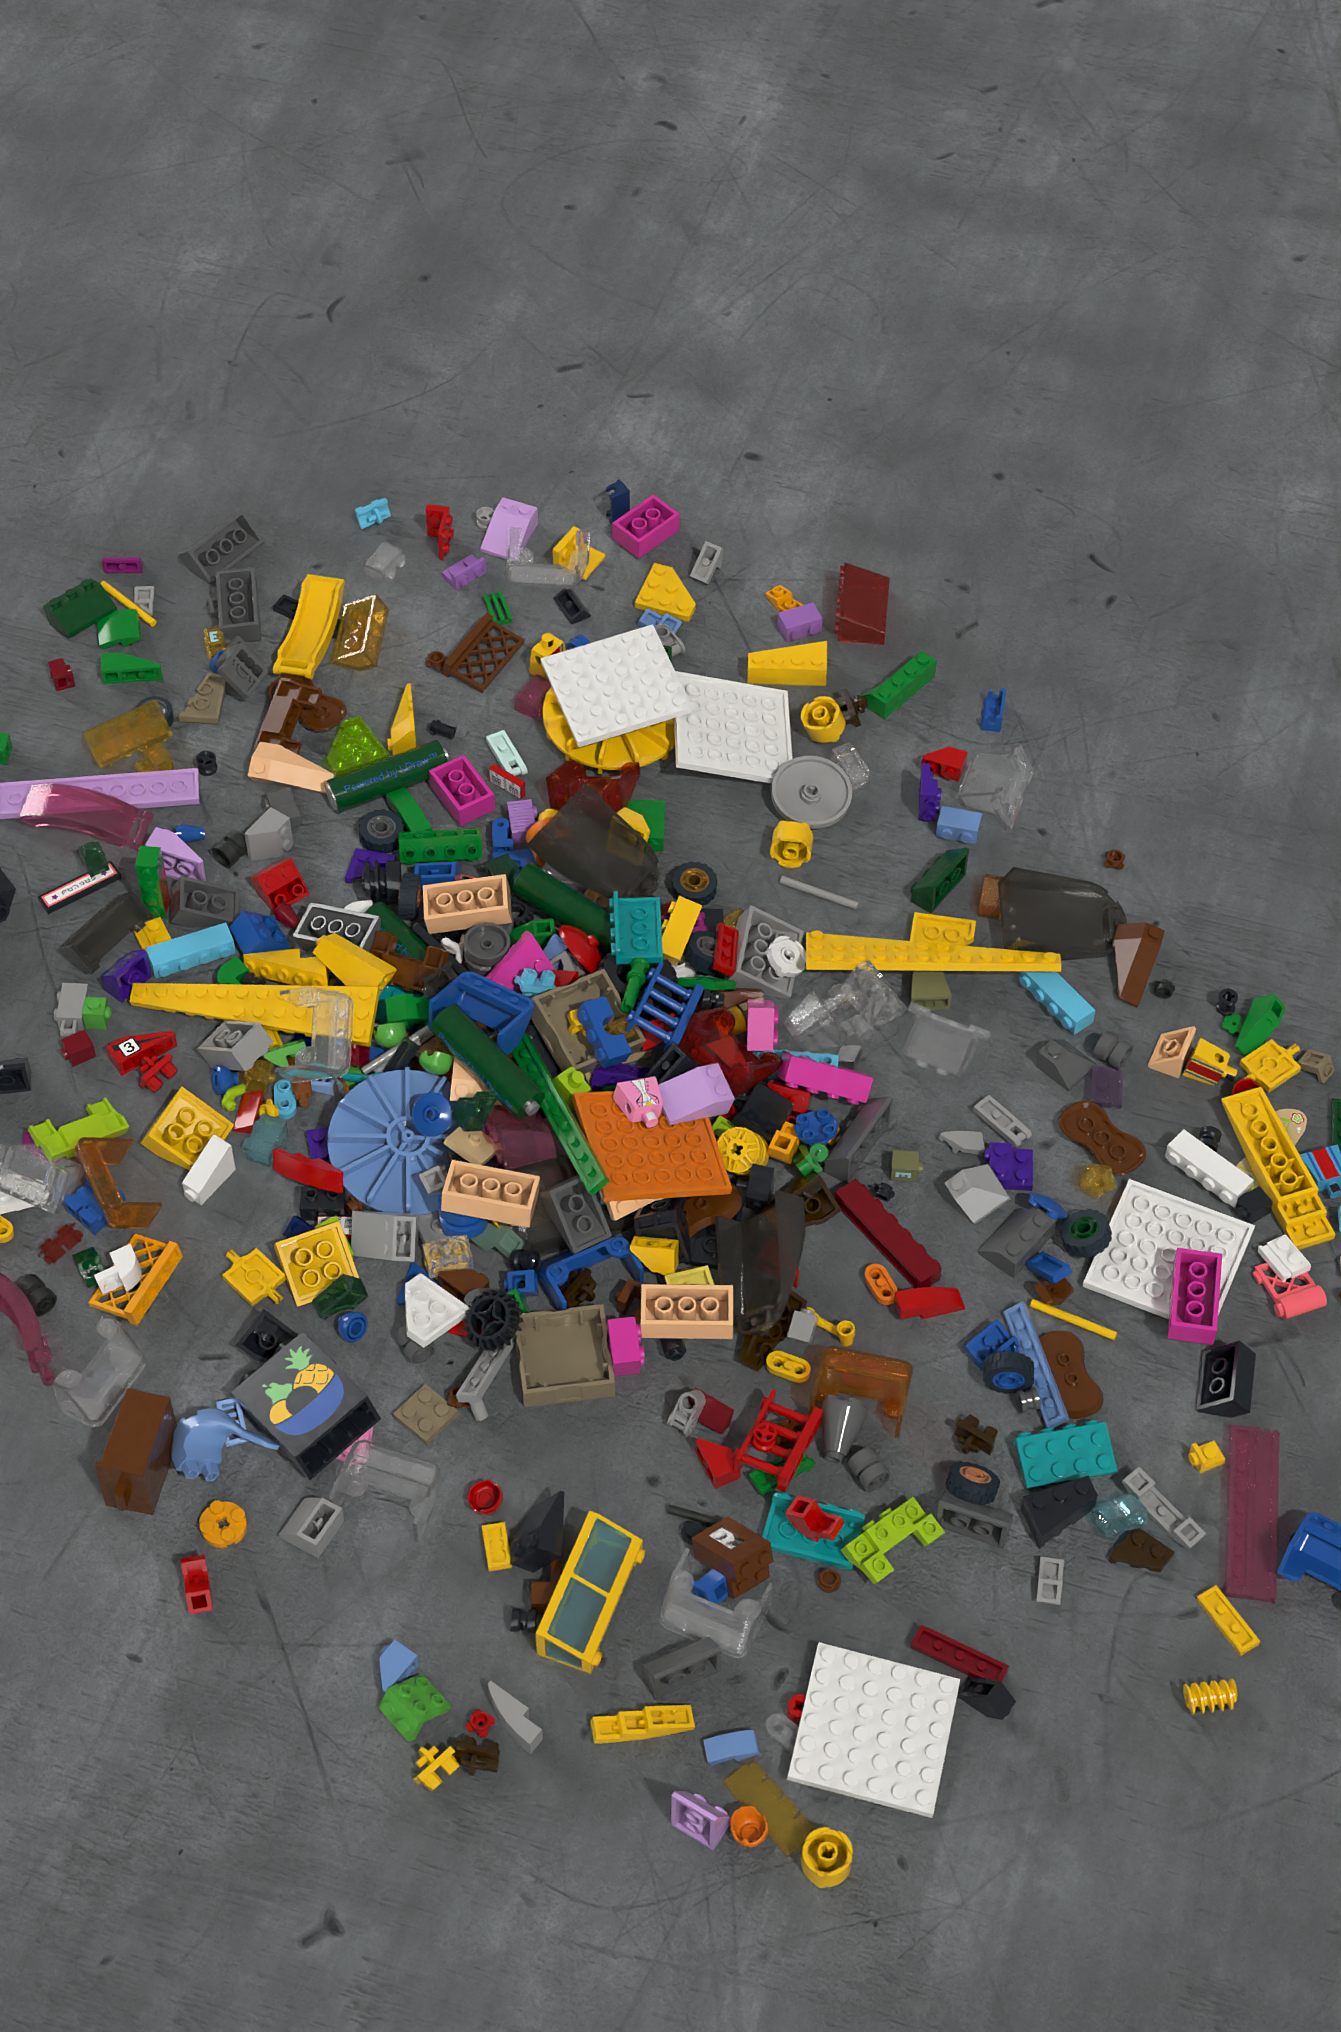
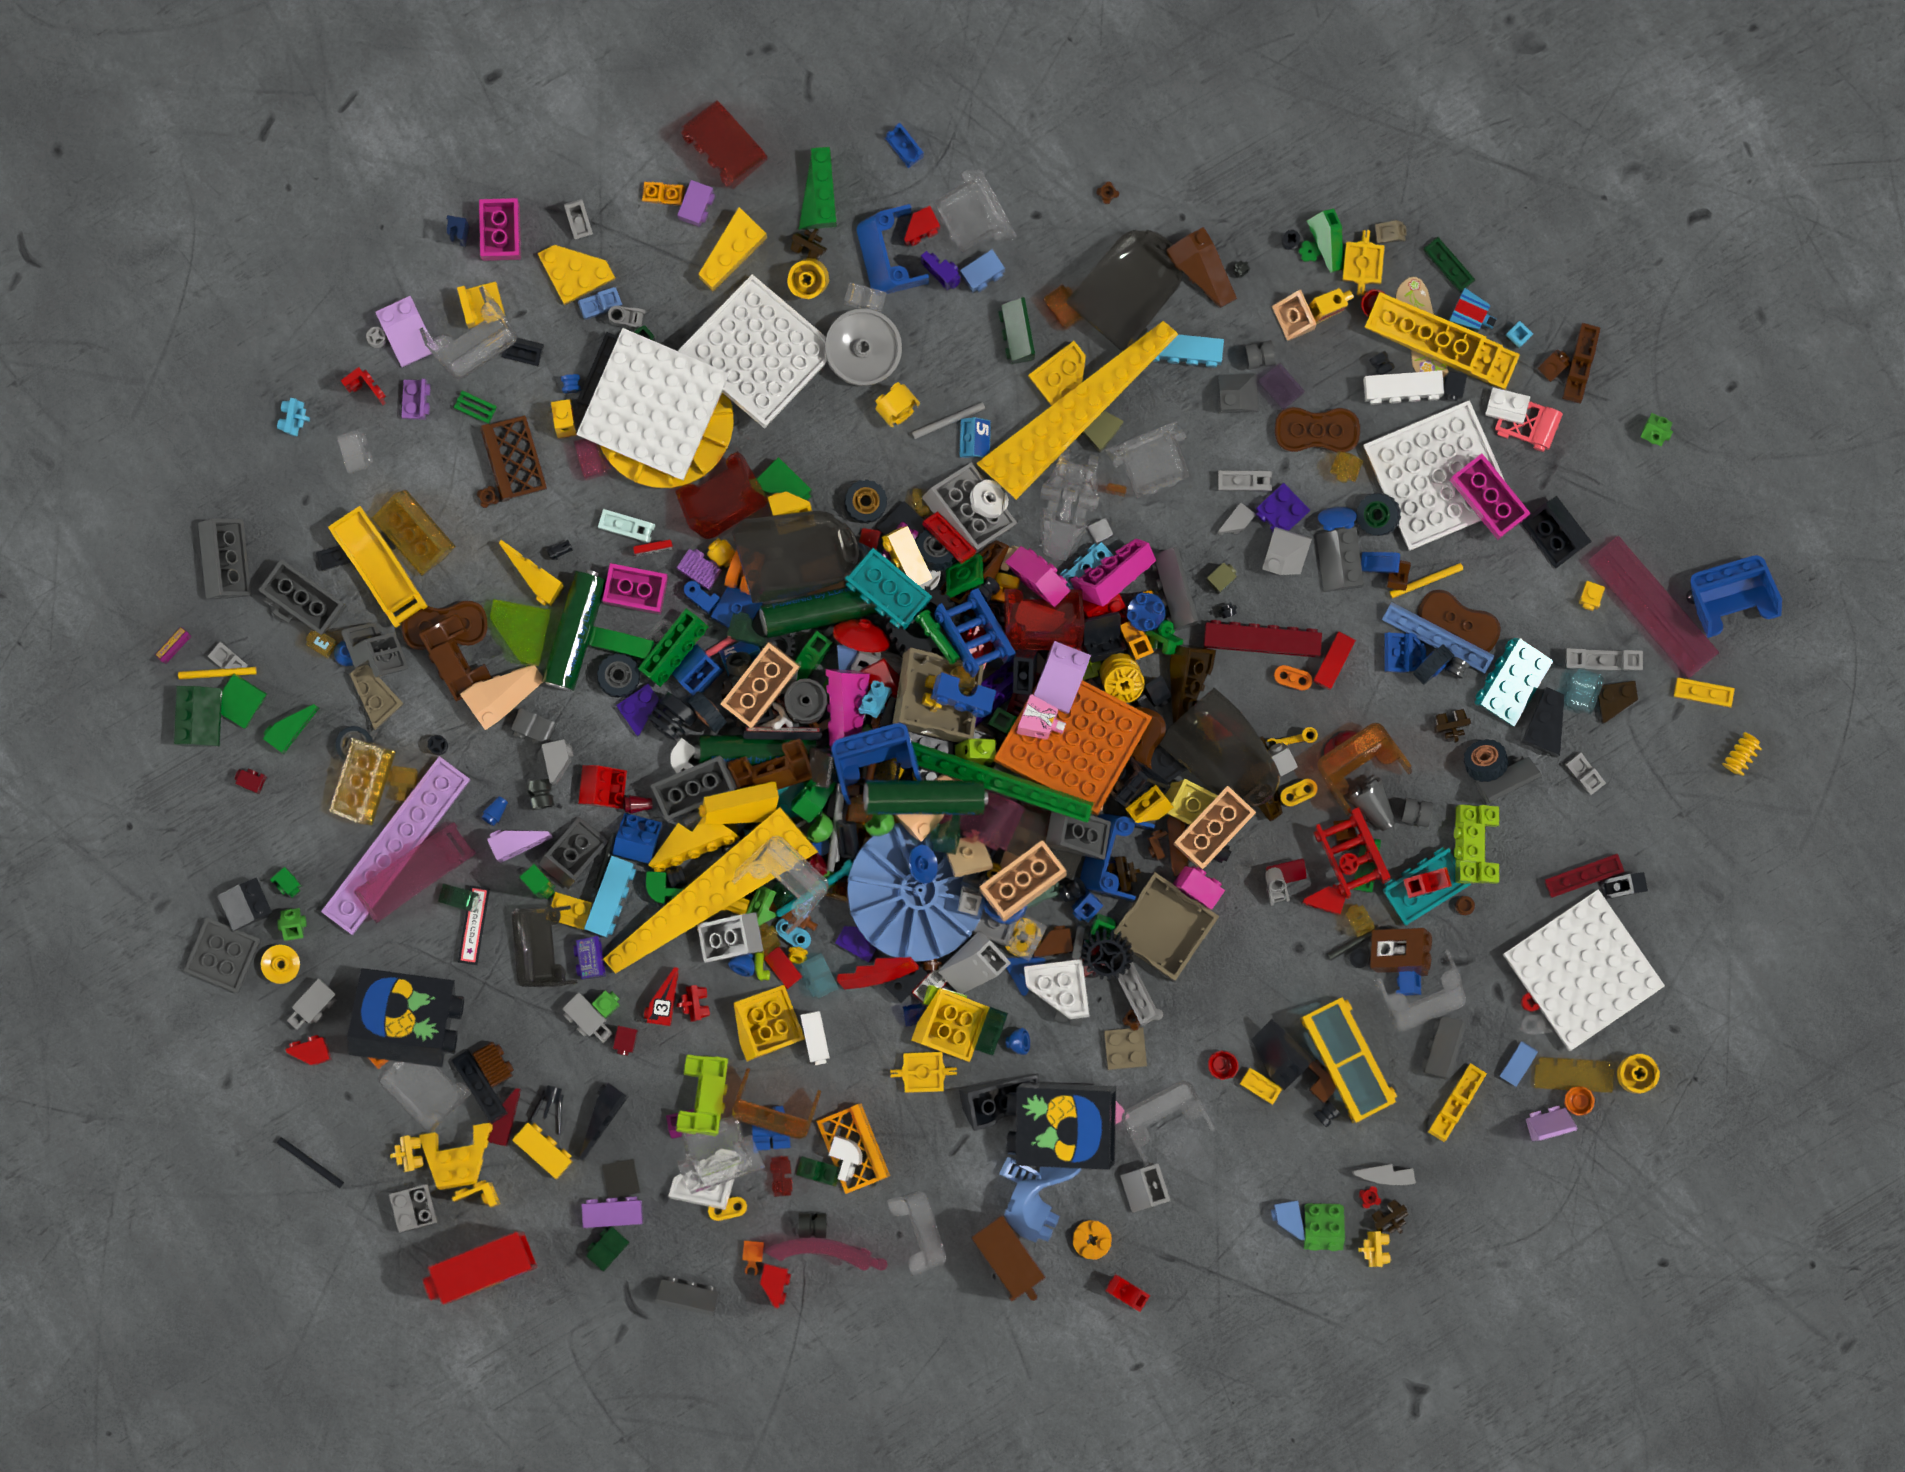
camera: 50 degrees left, 30 degrees up
(728, 1497) = (1362, 925): none -> clear yellow brick
(826, 917) = (974, 437): none -> panel
(886, 765) = (875, 256): none -> blue windscreen
(892, 1038) = (1116, 489): none -> clear orange tile

